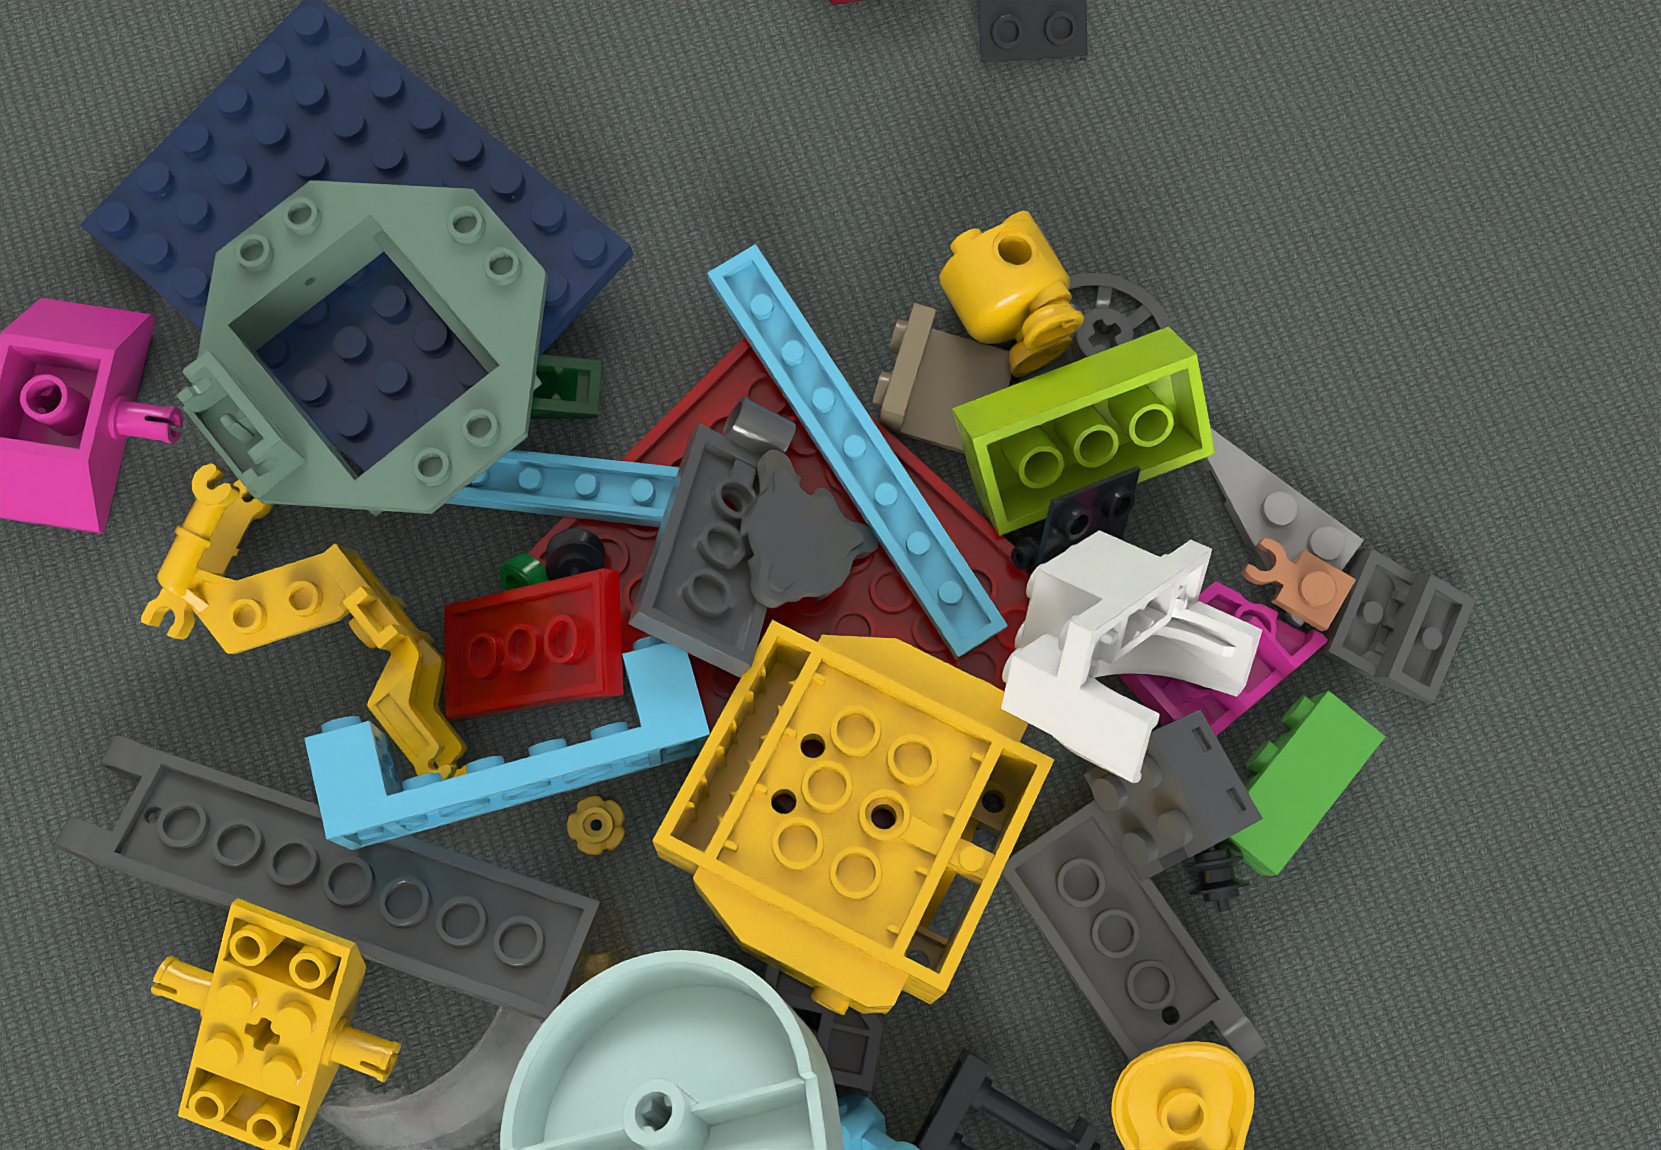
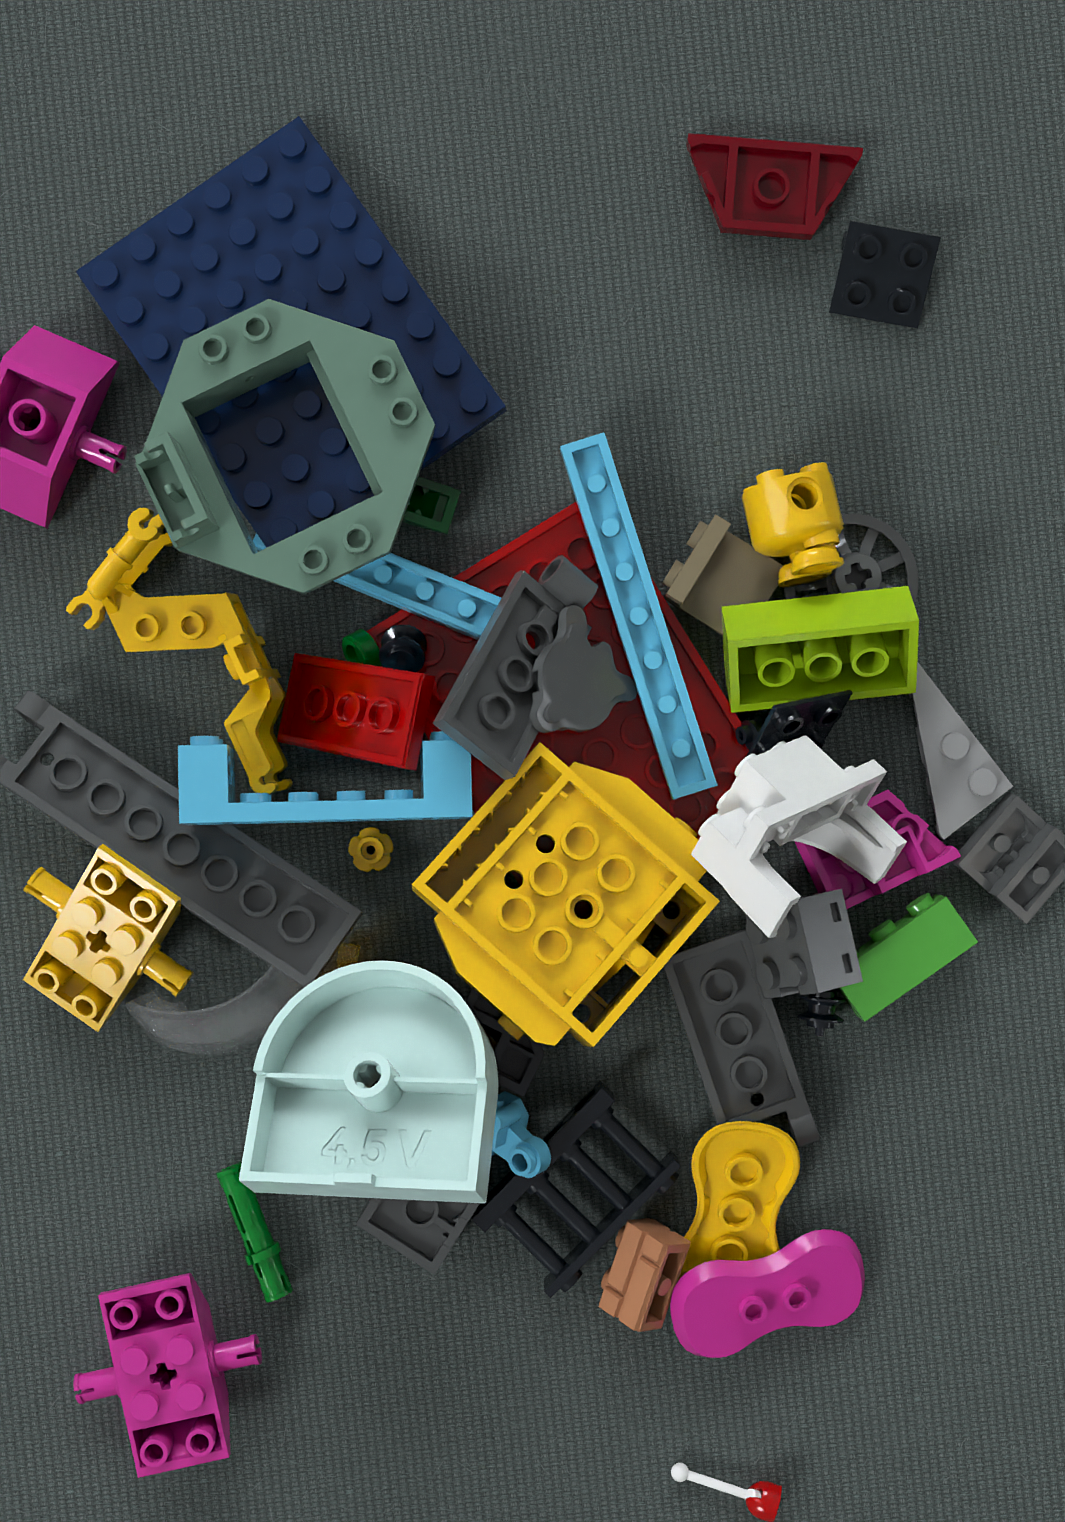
camera: 15 degrees right, 10 degrees up
(1306, 586) = (955, 812): nougat plate -> none

